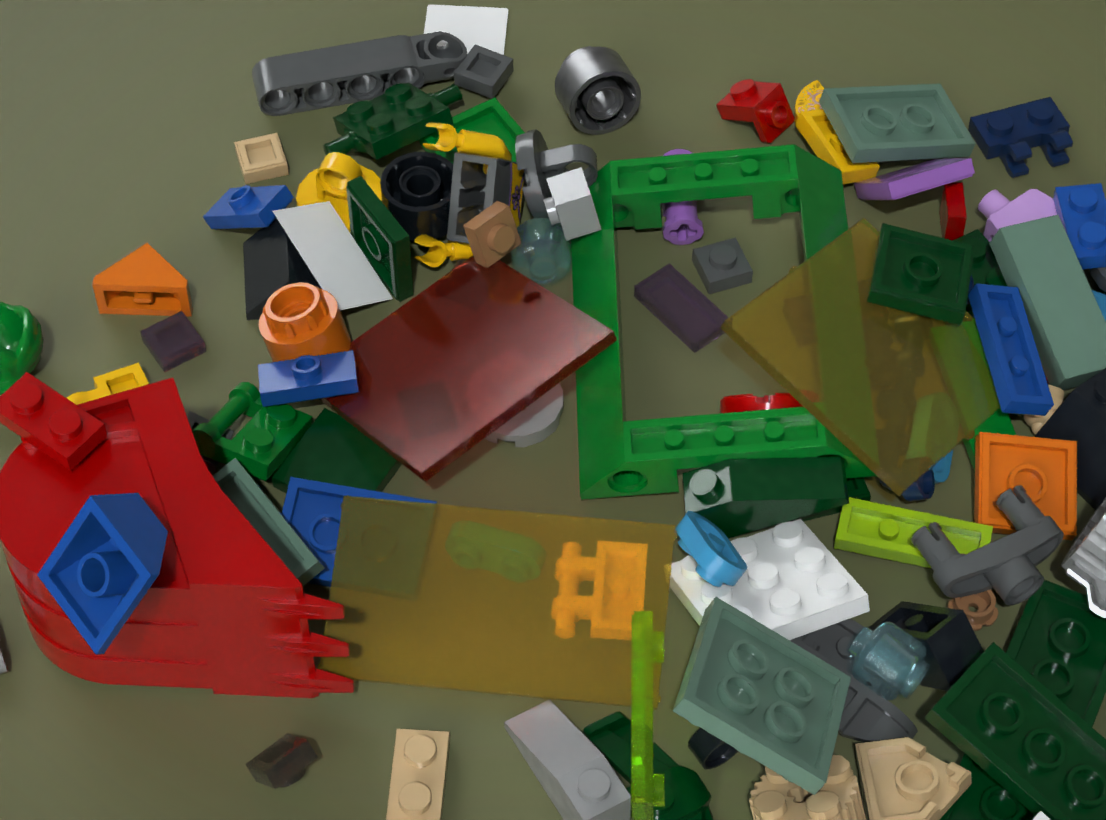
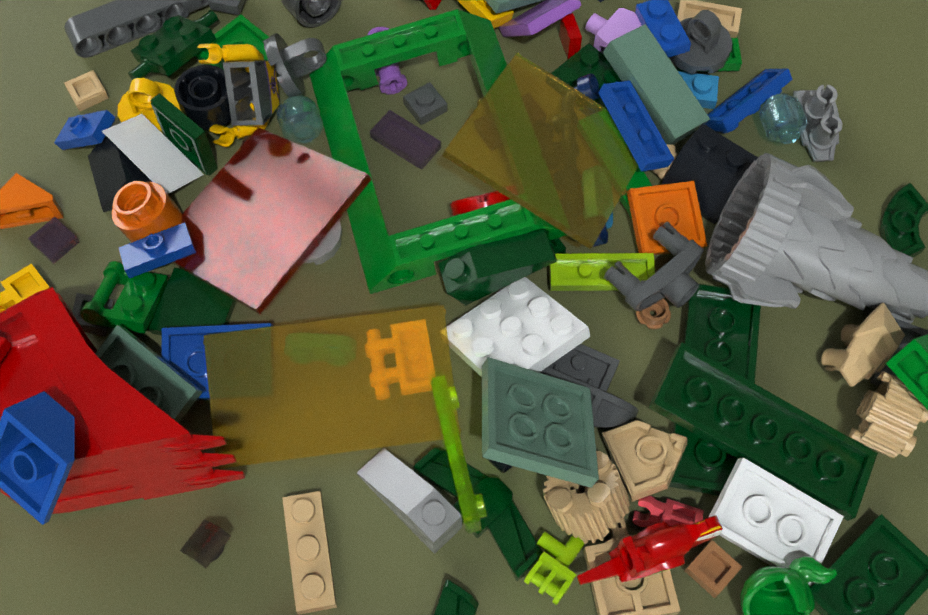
camera: 15 degrees left, 10 degrees up
(492, 234) = (263, 116): medium nougat plate -> none
(571, 204) = (314, 83): light grey plate -> none
(711, 549) = (472, 316): dark azure plate -> none
(888, 661) = (612, 370): clear light blue head -> none
(921, 274) = (565, 85): dark green tile -> none
(944, 633) = (636, 344): black slope -> none

